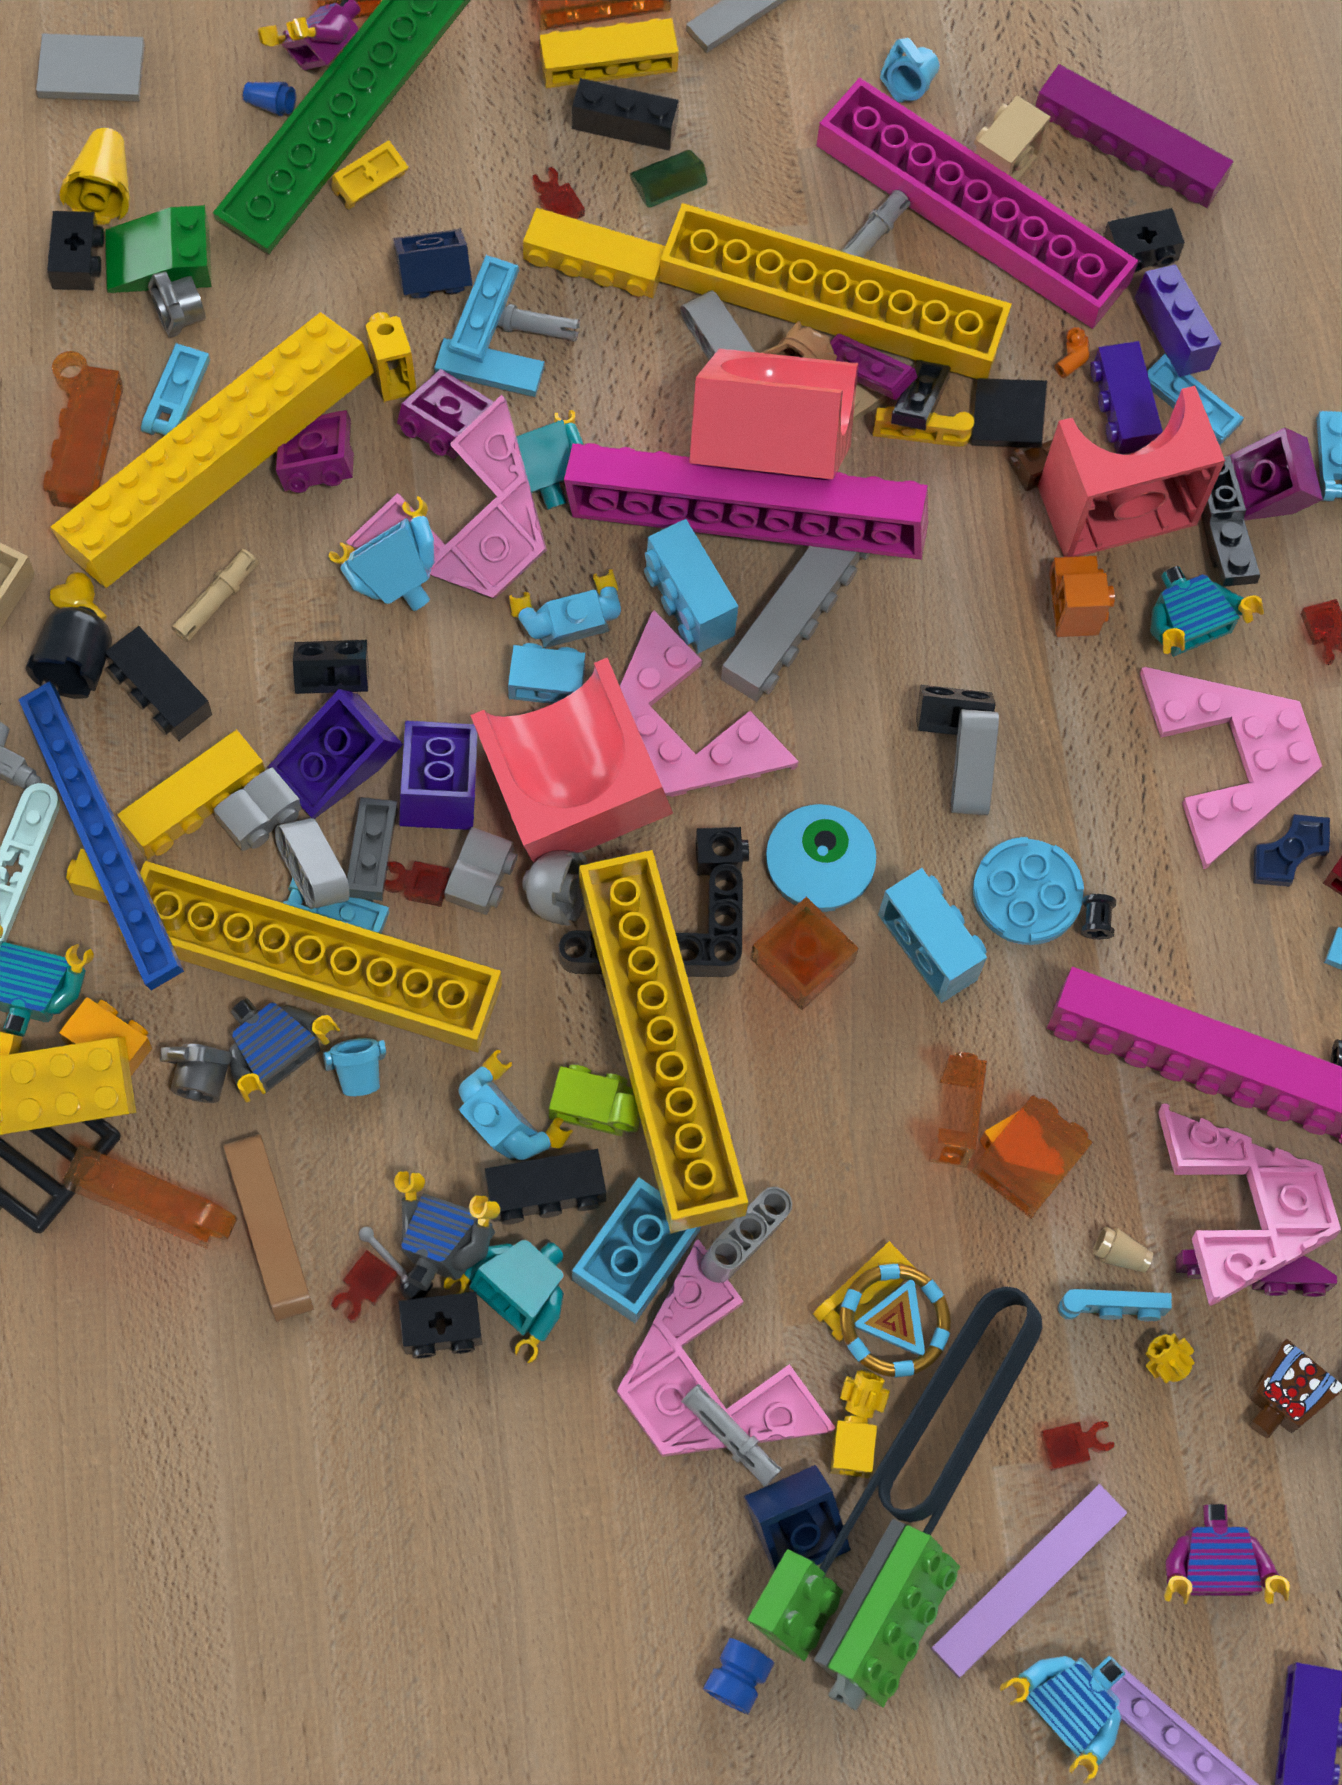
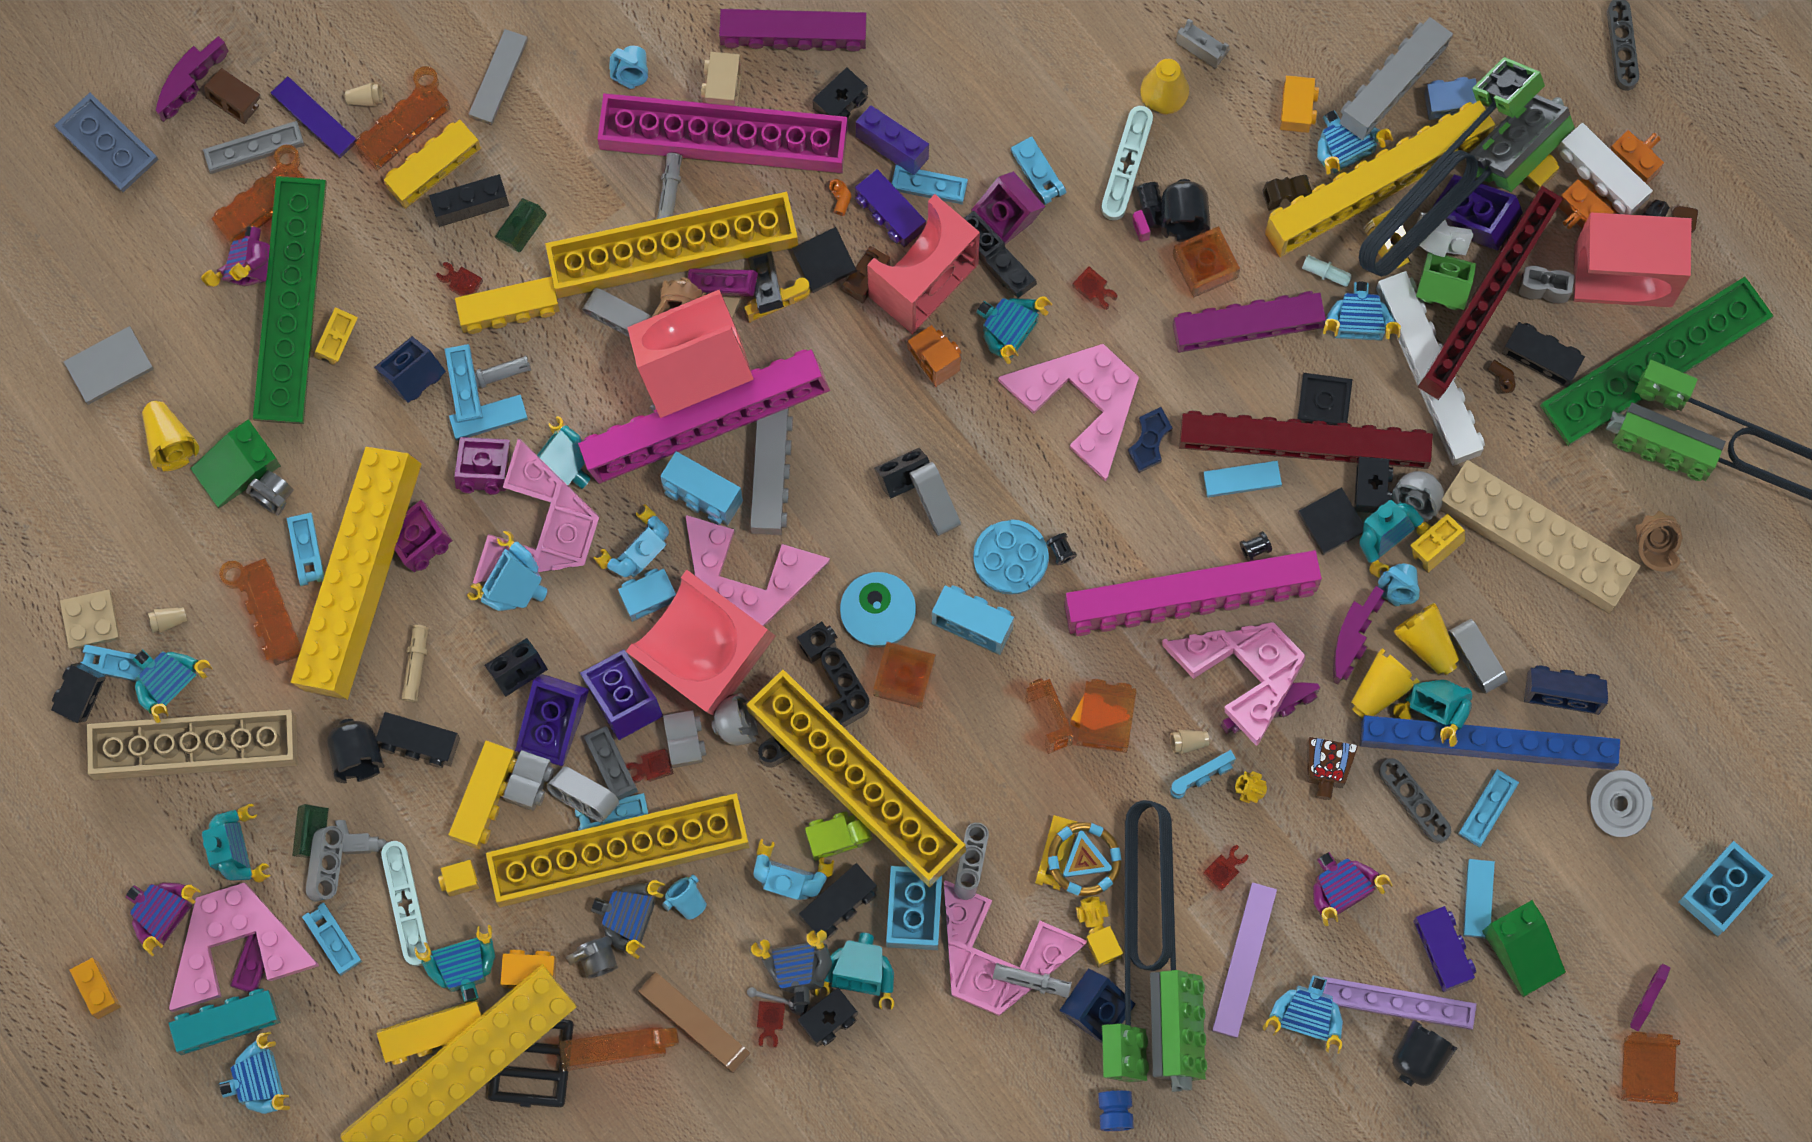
camera: 25 degrees left, 5 degrees up
(74, 250) = (172, 485): black brick -> none
(75, 593) = (330, 714): yellow rock -> none
(101, 837) = (448, 852): blue plate -> none
(271, 96) = (238, 318): blue cone -> none
(386, 343) = (425, 447): yellow torso -> none

